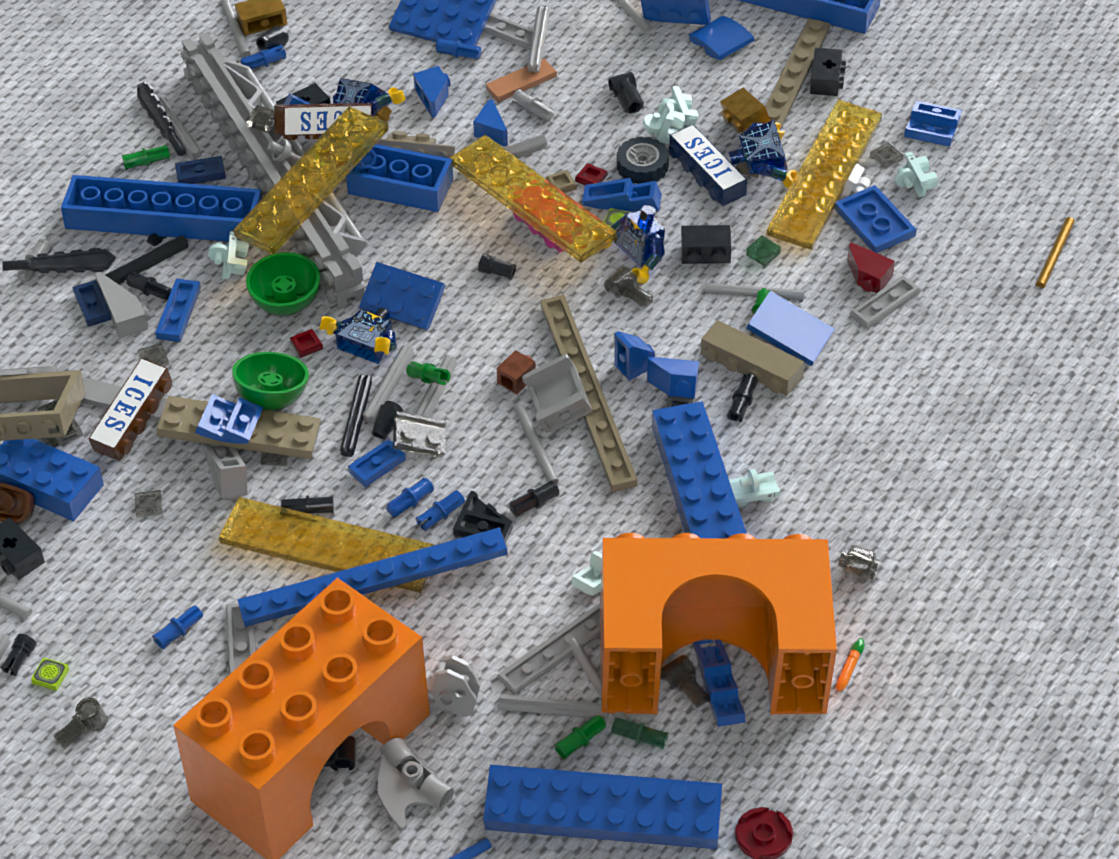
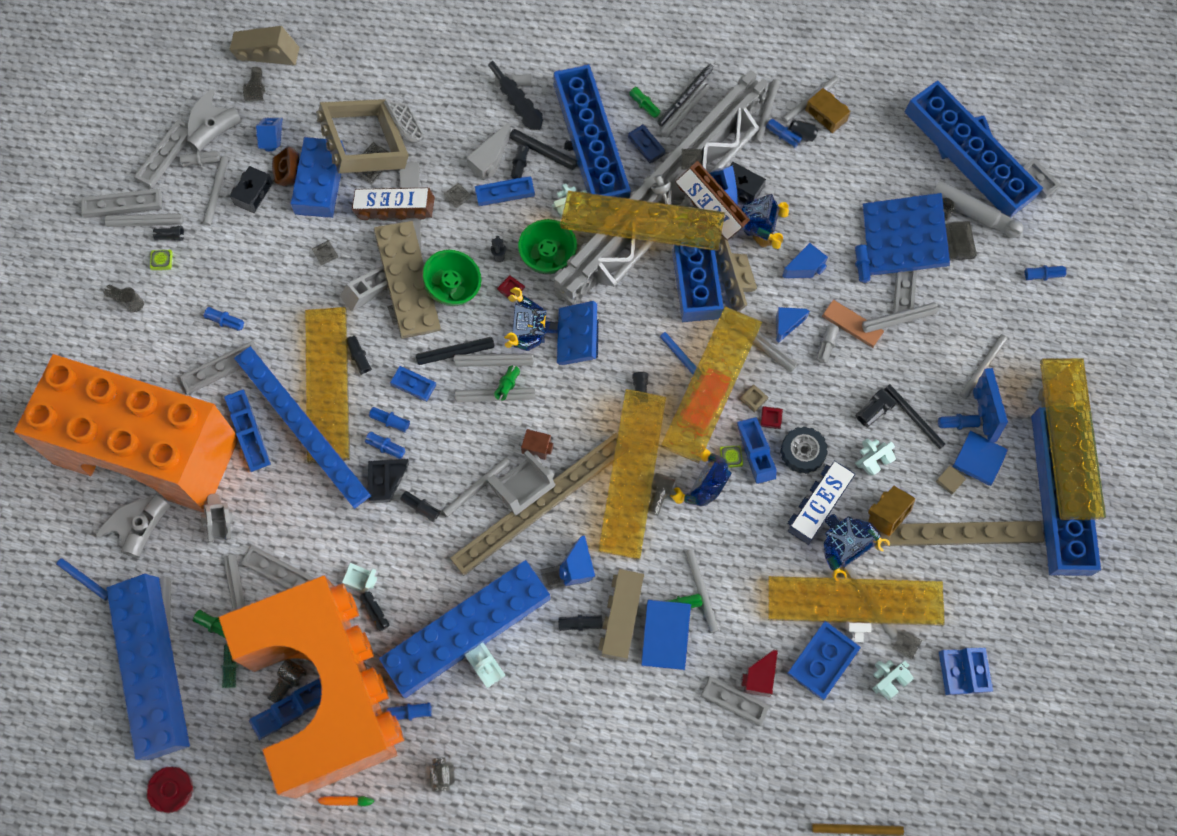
camera: 65 degrees right, 20 degrees up
(91, 303) = (485, 131): dark blue plate -> none
(229, 421) = (398, 269): blue slope -> none
(256, 329) = (498, 249): none -> black axle
(385, 419) = (456, 373): black cone -> none
(419, 434) = (446, 401): clear smoke plate -> none
(478, 224) = (678, 352): none -> blue bar
(597, 297) = (632, 474): none -> clear yellow plate
(631, 354) = (584, 523): blue slope -> none
(658, 68) = (915, 416): none -> black bar
(661, 124) = (845, 453): light aqua hips -> none
(675, 38) = (959, 421): none -> blue axle
(705, 244) = (727, 534): black brick -> none
(732, 66) = (951, 480): none -> dark tan tile
(763, 250) = (746, 581): clear green plate -> none
(826, 72) = (990, 554): black brick -> none

